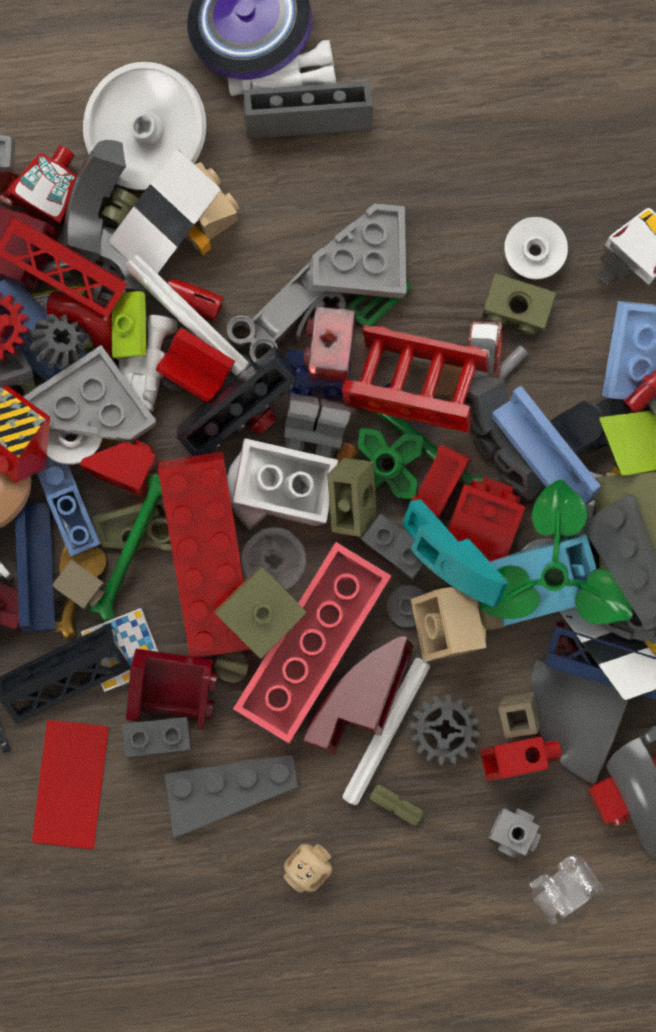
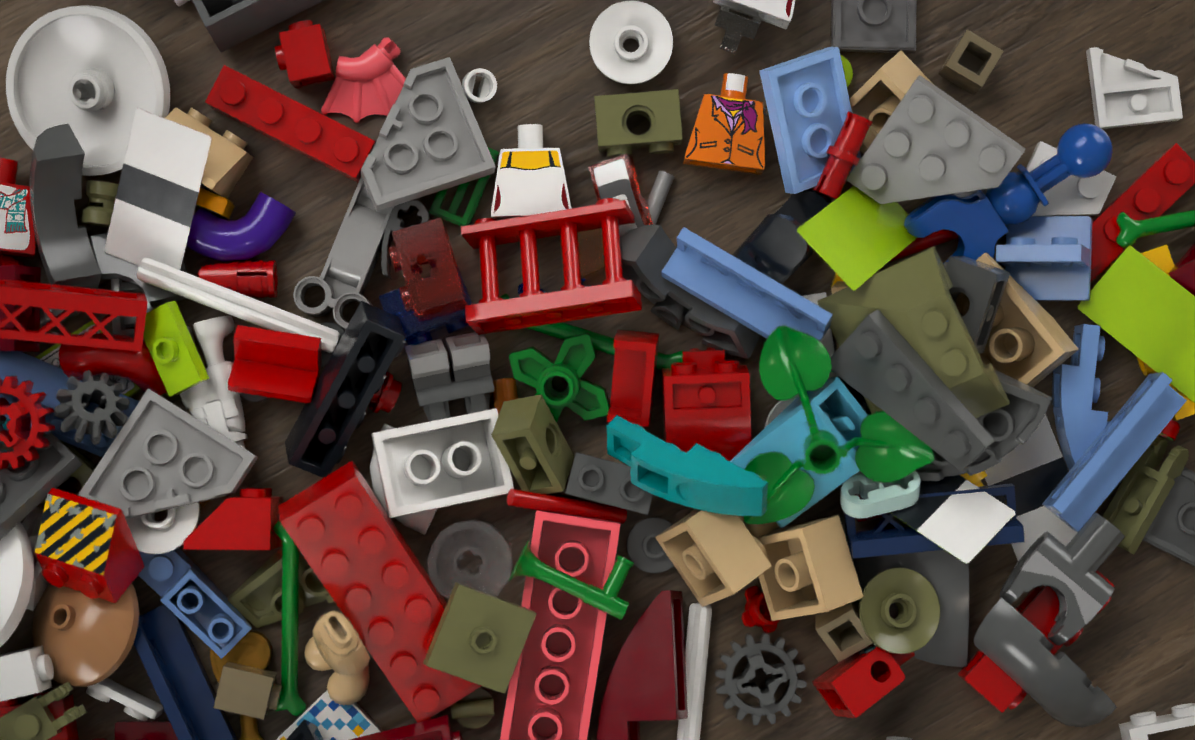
camera: 20 degrees left, 5 degrees up
(157, 584) = (339, 648): none -> tan piece
(209, 271) = (242, 237): none -> dark purple cylinder
(274, 206) = (289, 123): none -> red brick
(304, 164) = (305, 54): none -> red brick
(338, 201) = (366, 83): none -> coral arm
(346, 541) = (565, 506): none -> red bar
(357, 622) = (604, 600): none -> green piece
(421, 239) = (487, 85): none -> white hinge
(426, 311) = (529, 178): none -> white torso
(472, 682) = (752, 614): none -> red plate
(510, 663) = (808, 569): none -> tan brick
(576, 723) = (916, 605): none -> olive dish
(579, 337) = (728, 130): none -> orange torso
(582, 631) = (878, 496): none -> light aqua beam

